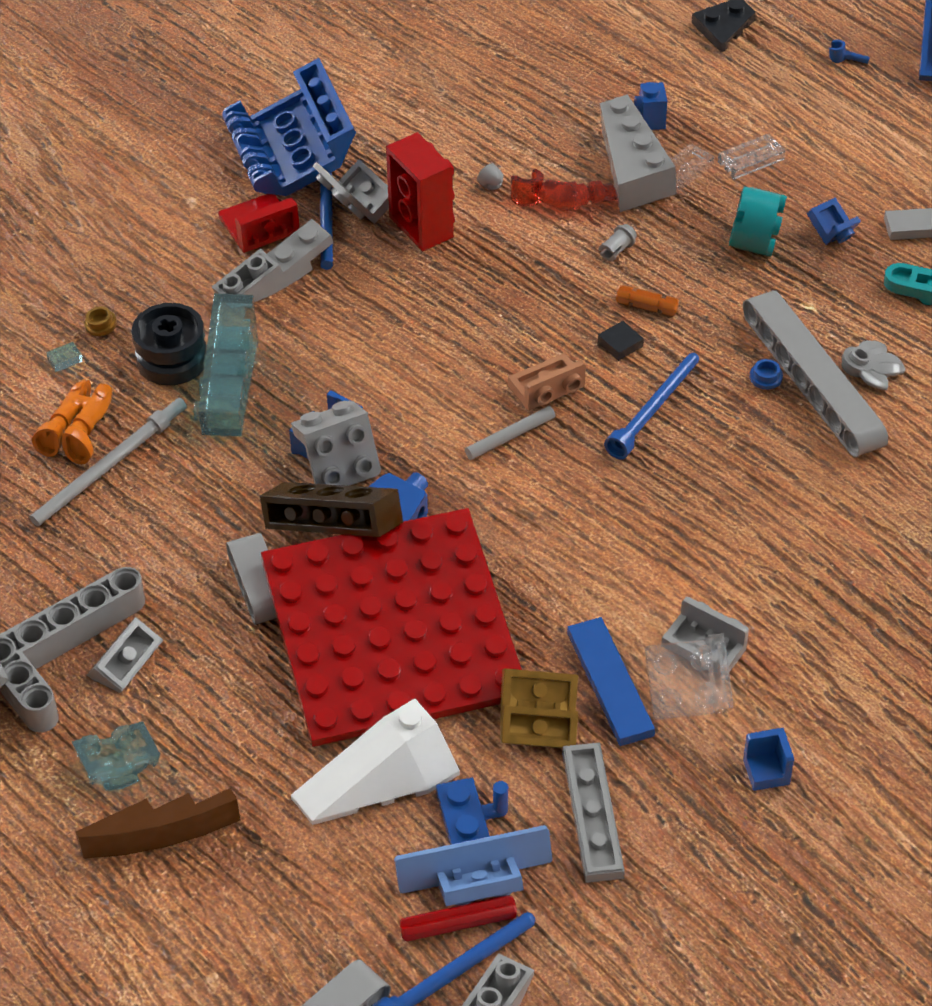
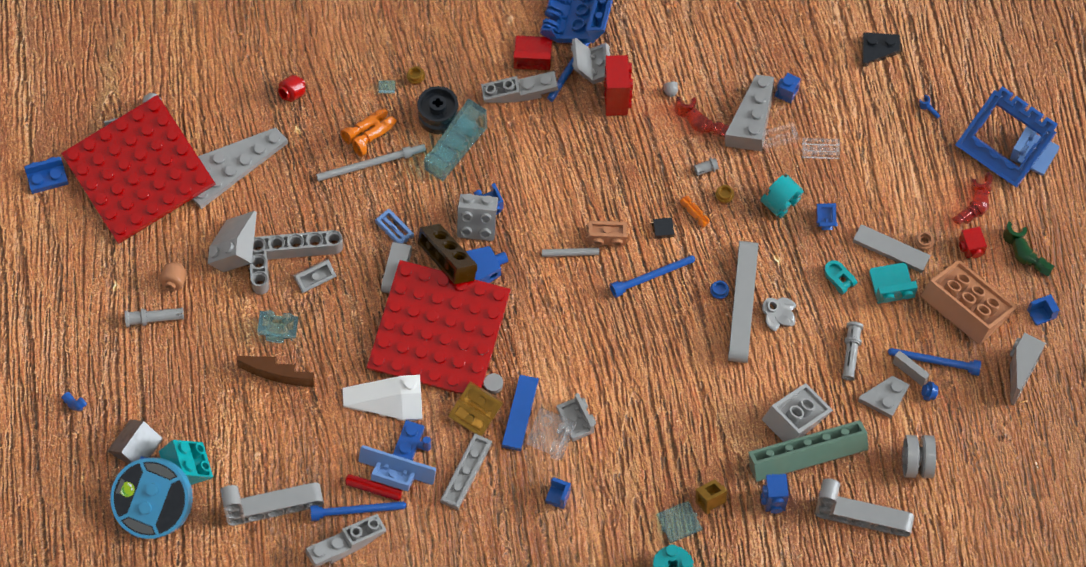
camera: 30 degrees right, 15 degrees up
(208, 533) = (404, 238): none -> medium blue tile
(536, 658) = (493, 383): none -> light grey tile
(671, 260) = (724, 194): none -> pearl gold plate

